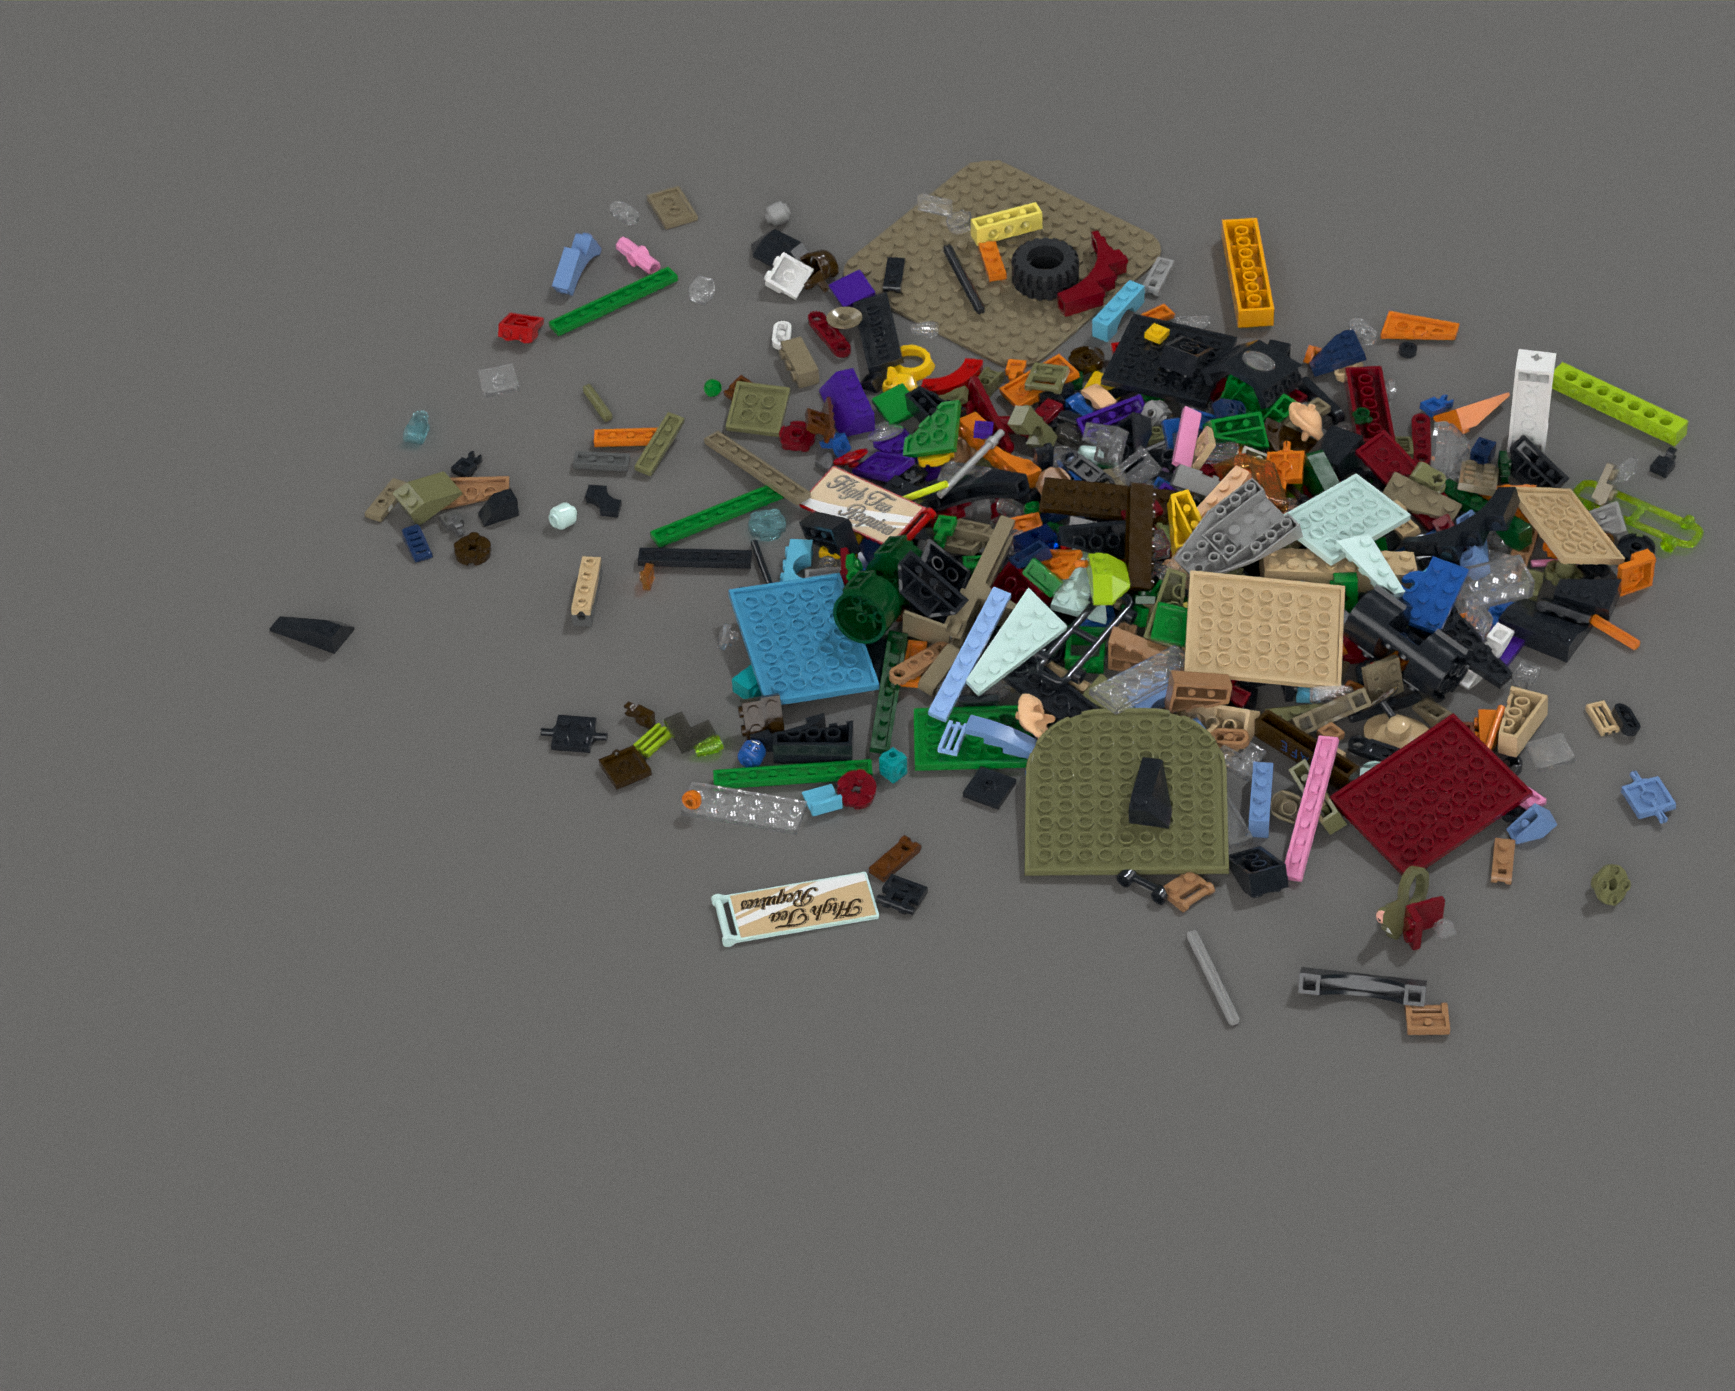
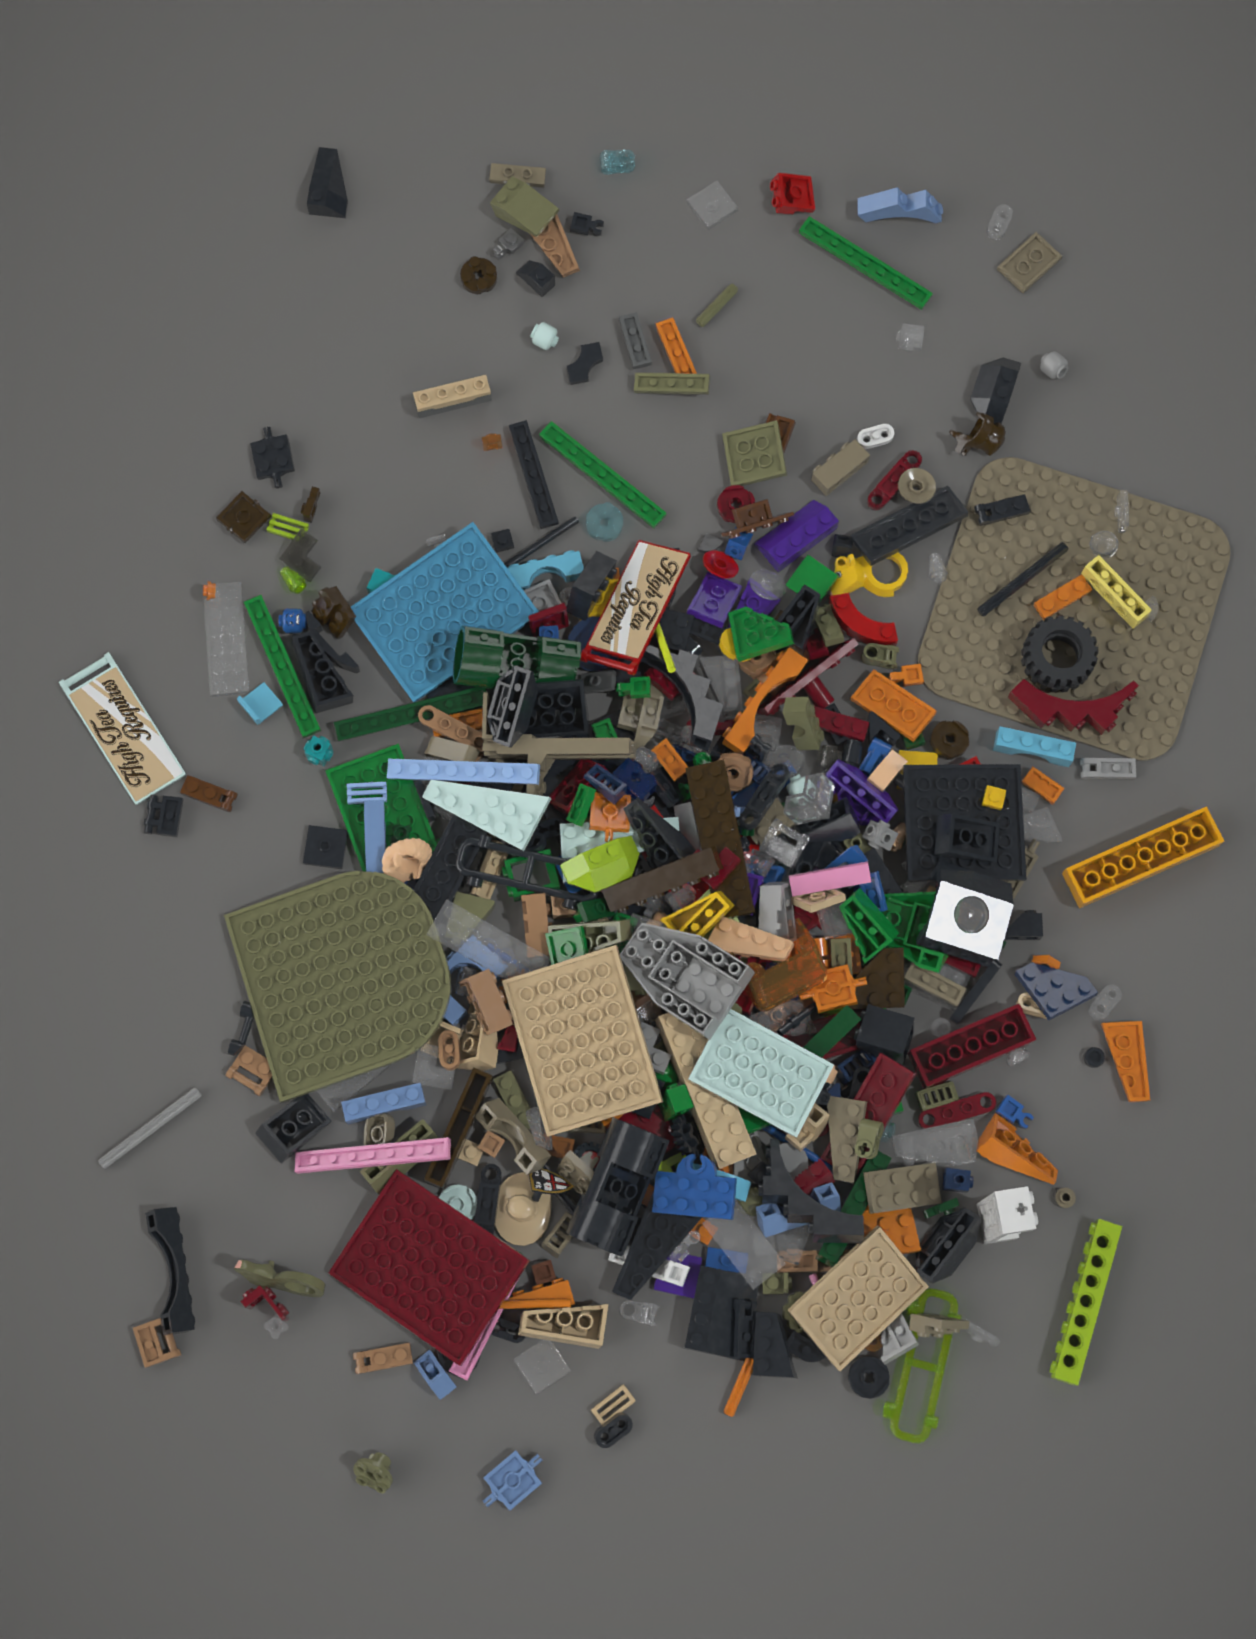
camera: 65 degrees right, 30 degrees up
(410, 538) = (468, 215): dark blue slope -> none
(637, 255) = (939, 259): bright pink piece -> none
(712, 387) = (774, 400): green plate -> none
(757, 468) = (672, 484): dark tan tile -> none
(788, 275) = (958, 410): white plate -> none
(851, 289) = (967, 477): dark purple tile -> none
(853, 566) = (541, 624): green plate -> none
(860, 779) = (269, 724): dark red plate -> none
(983, 429) = (774, 677): dark purple plate -> none
(989, 444) = (758, 690): light grey bar -> none
(1047, 373) = (897, 711): olive plate -> none
(1150, 796) = (334, 1001): black wedge -> none
(1227, 407) = (889, 908): dark blue plate -> none
(1307, 419) = (909, 990): light nougat piece -> none
(1361, 416) = (944, 1037): dark green plate -> none
(1371, 562) = (703, 1117): light aqua wing -> none
(1637, 572) = (826, 1391): orange plate -> none
(1664, 465) = (1011, 1374): black plate -> none

